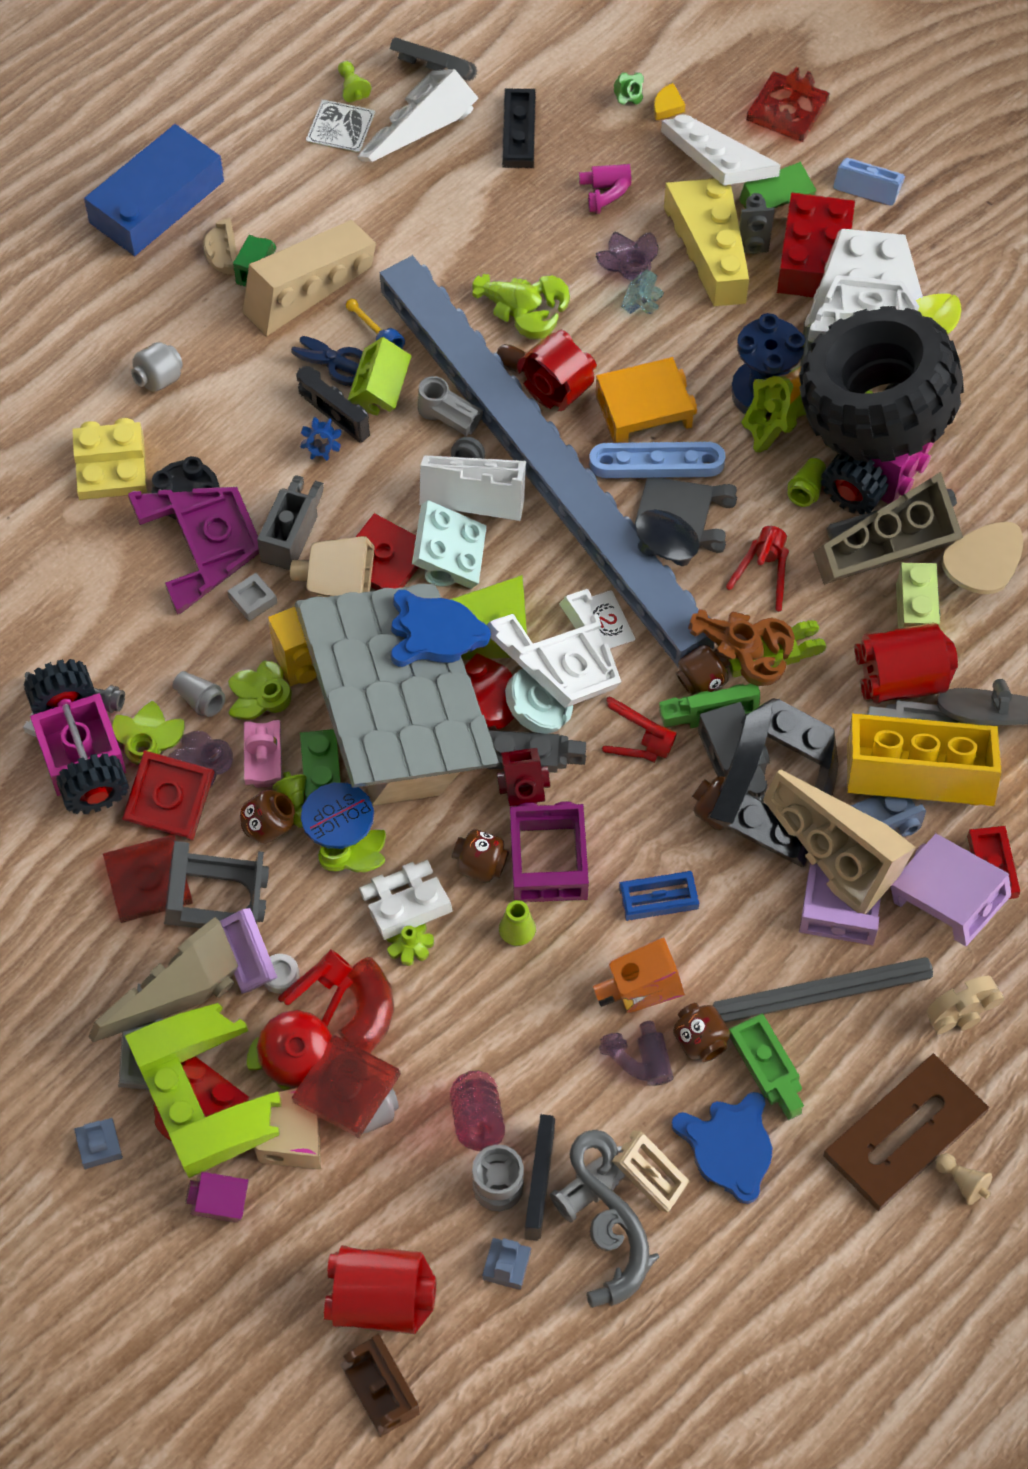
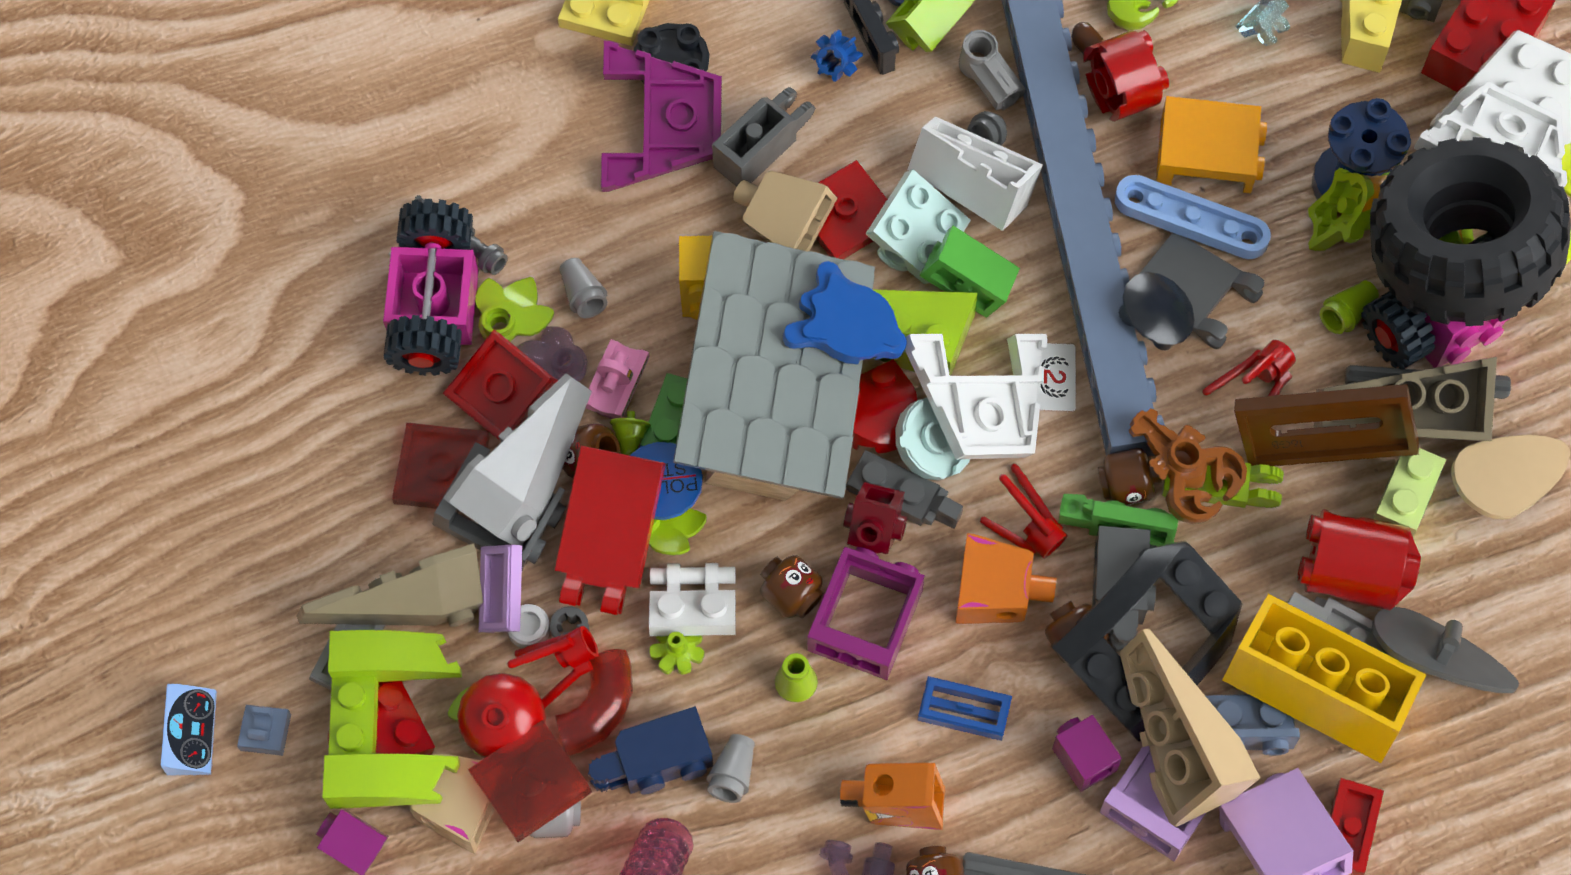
camera: 25 degrees right, 5 degrees up
(35, 1169) = (188, 730): none -> slope
(222, 861) = (516, 480): none -> light grey wedge
(252, 596) = (685, 203): light grey plate -> none
(259, 691) = (646, 310): lime plate -> none
(310, 950) = (568, 613): none -> dark grey bush
(312, 864) = (608, 525): none -> red tile
(434, 1027) = (655, 754): none -> dark blue hinge
(500, 1016) = (732, 770): none -> light grey cone
(505, 558) = (970, 267): none -> bright green hinge
(640, 789) = (998, 582): none -> orange torso
(770, 887) = (1085, 752): none -> magenta brick
(889, 562) = (1390, 437): none -> reddish brown piece

